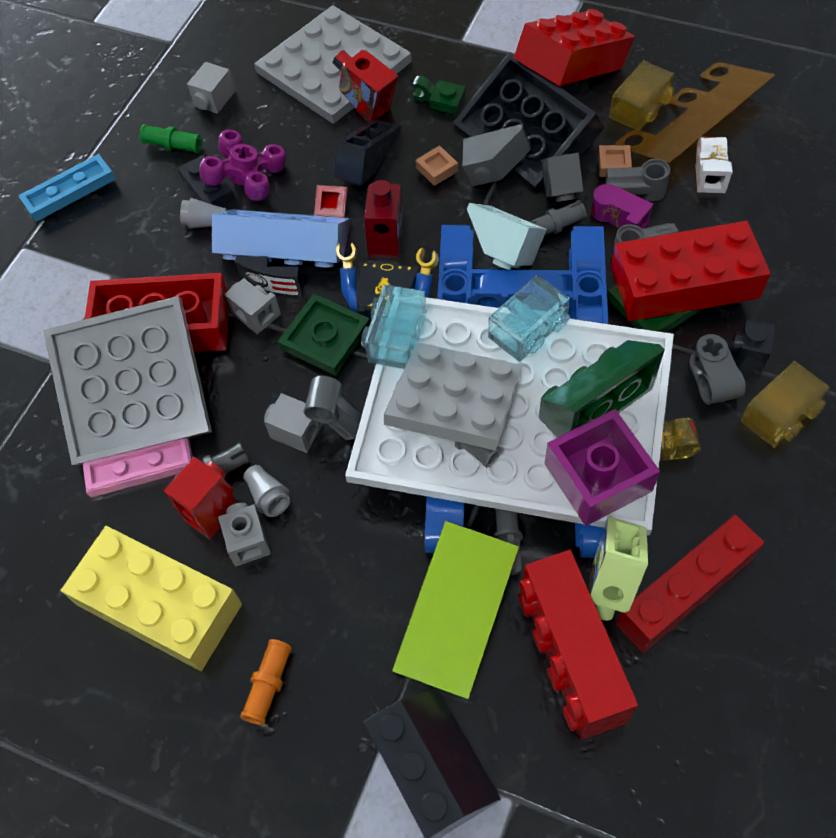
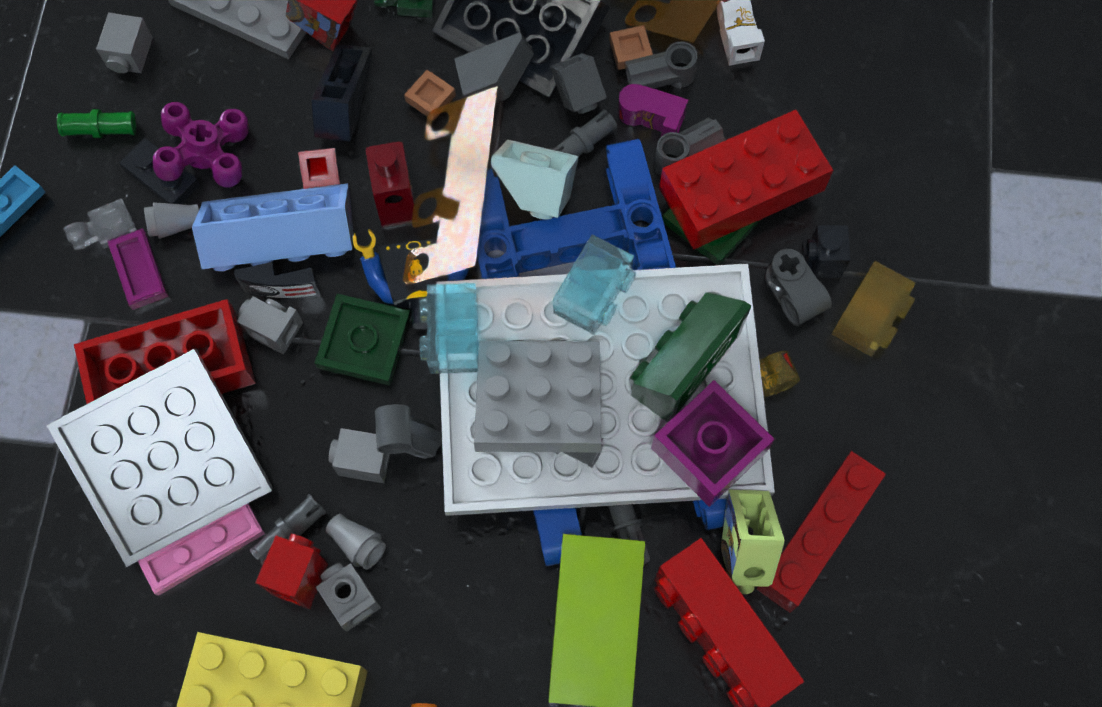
camera: 20 degrees left, 10 degrees up
(152, 211) = (106, 224): none -> clear plate
(164, 247) = (137, 269): none -> magenta tile
(435, 234) = (463, 196): none -> clear orange piece

